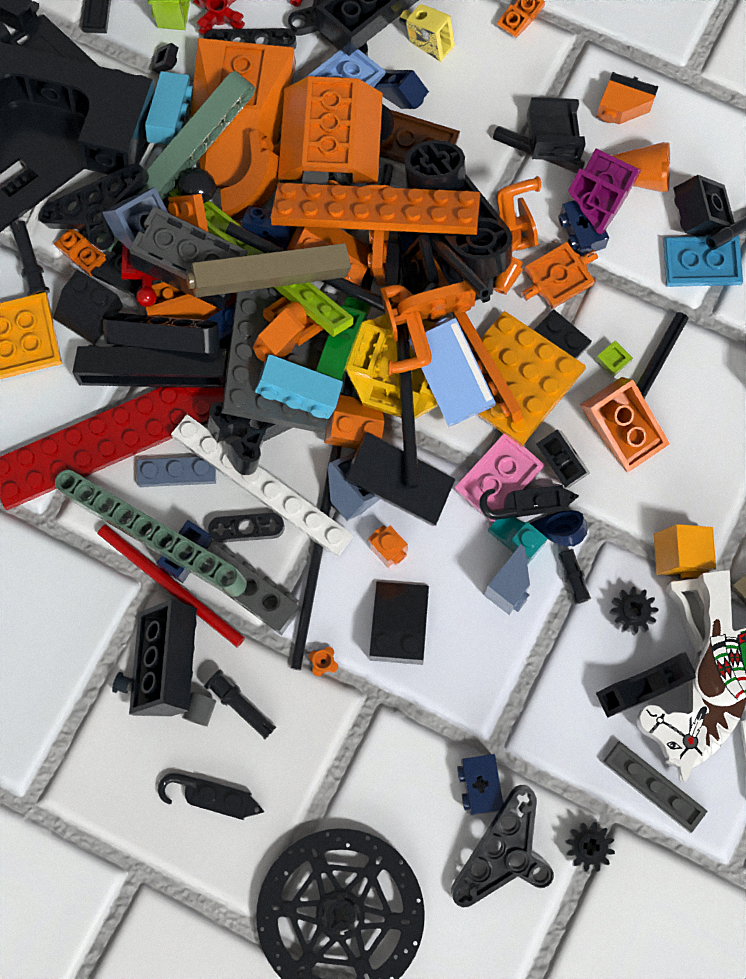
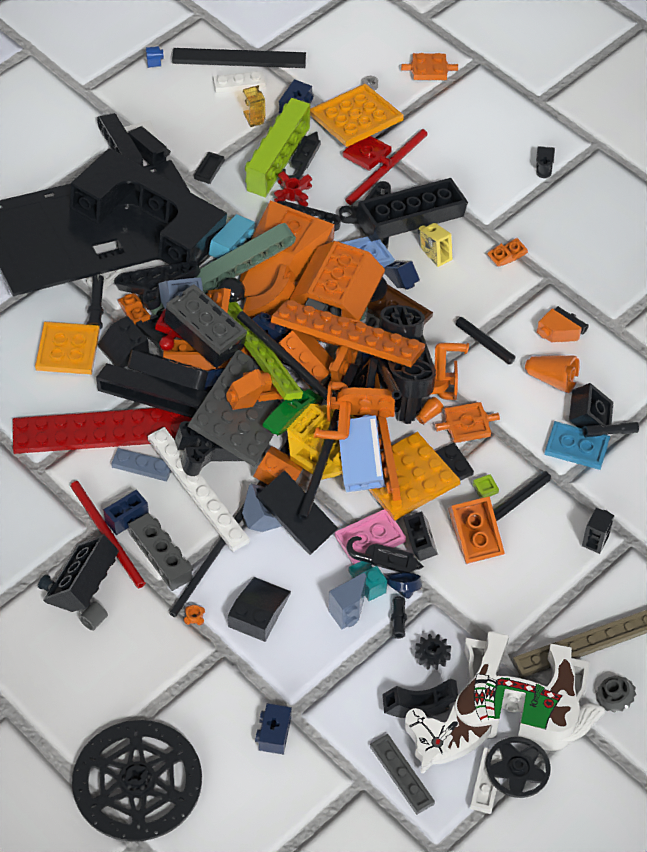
camera: 15 degrees right, 20 degrees down
(156, 538) = (107, 488): sand green beam -> none
(165, 58) = (244, 208): black plate -> none
(211, 796) = (79, 676): black plate -> none
(231, 696) = (119, 615): black pin -> none
(254, 535) = (191, 512): black beam -> none
(268, 270) = (256, 345): dark tan brick -> none
(298, 387) = (247, 426): medium azure brick -> none
(388, 545) = (271, 554): orange brick -> none
(498, 866) = (264, 783): black beam -> none
(554, 129) = (500, 328): black panel -> none
(580, 239) = (497, 395): dark blue brick -> none
(595, 856) = (343, 792): black gear -> none
(603, 188) = (518, 372): magenta slope -> none
(684, 551) = (485, 617): light orange plate -> none

